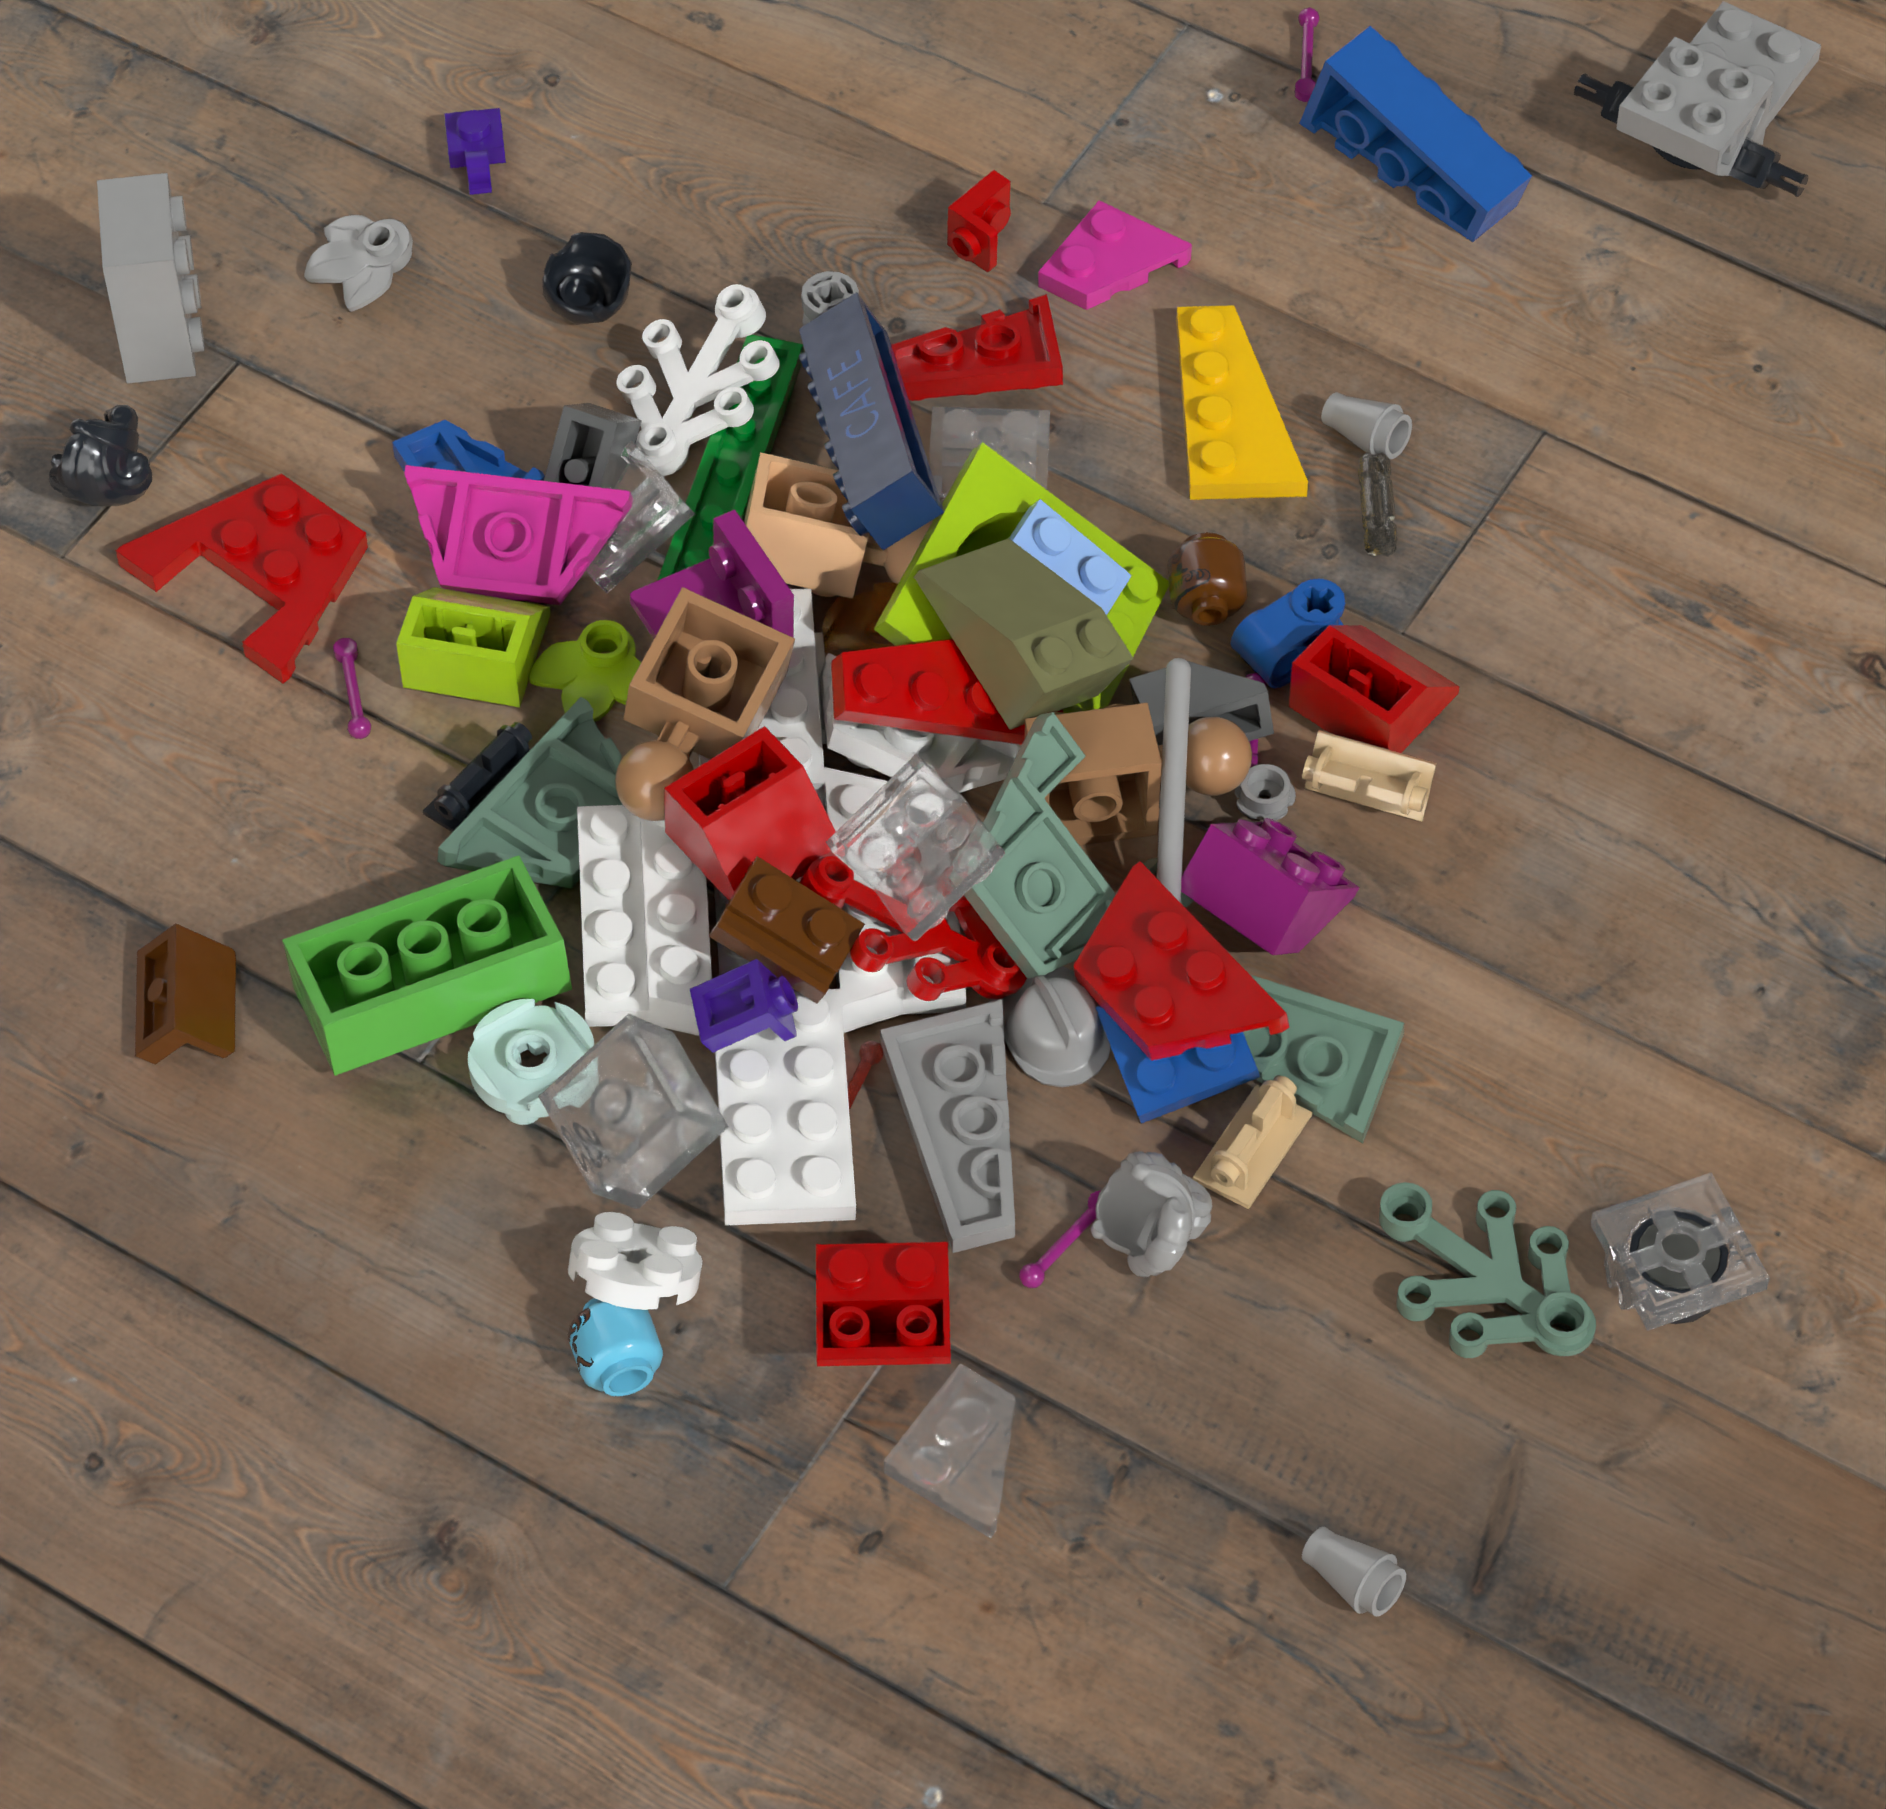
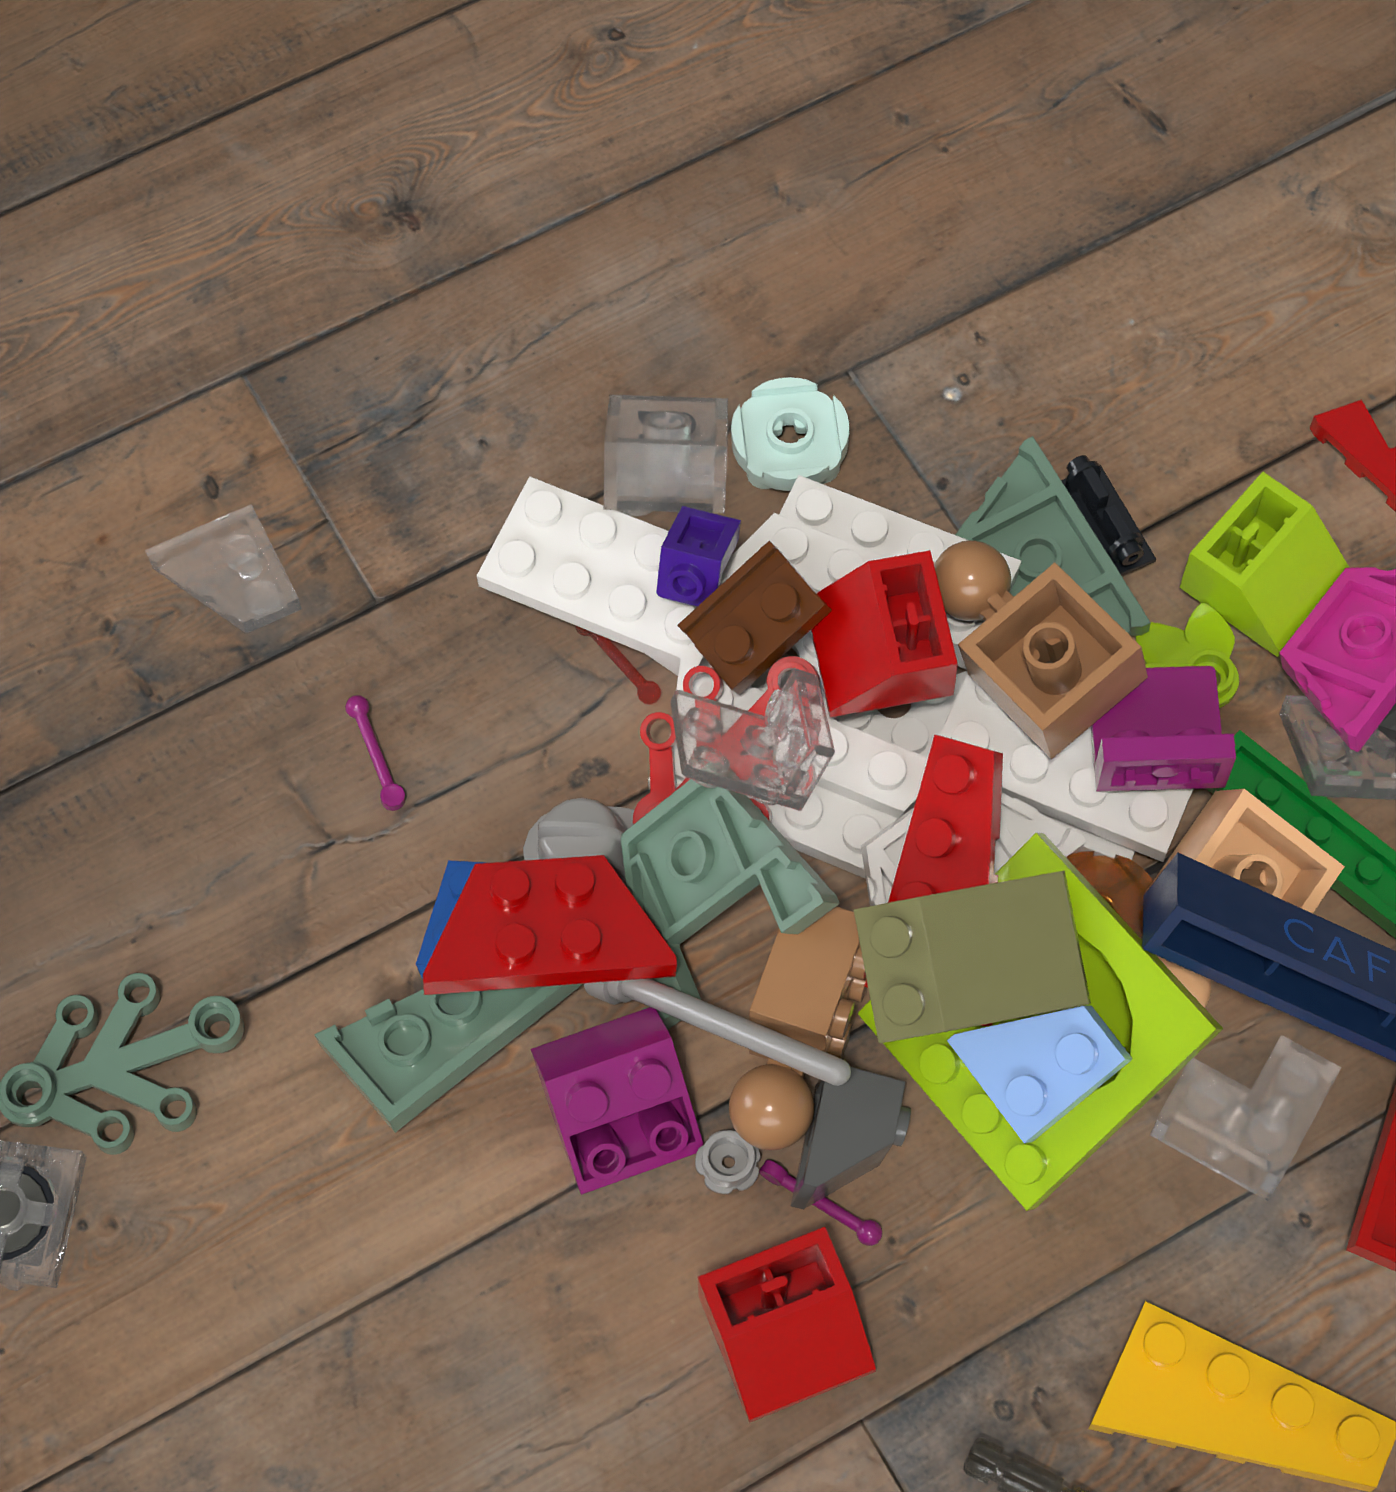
camera: 120 degrees right, 10 degrees up
(184, 995) = (994, 227): reddish brown panel -> none
(346, 653) = (1318, 484): magenta hinge -> none
(426, 964) = (918, 386): bright green brick -> none
(615, 1347) = (481, 375): medium azure head -> none
(635, 1262) = (568, 408): white plate -> none
(882, 1304) = (375, 560): red slope -> none
(958, 1113) = (538, 720): light grey wing -> none
(1151, 1212) = (337, 816): light grey hair -> none
(1208, 577) = (1004, 1239): reddish brown head -> none
(1254, 1142) = (364, 939): tan hinge -> none
(1284, 629) = (897, 1281): blue piece -> none
(1369, 775) = (661, 1278): tan hinge -> none

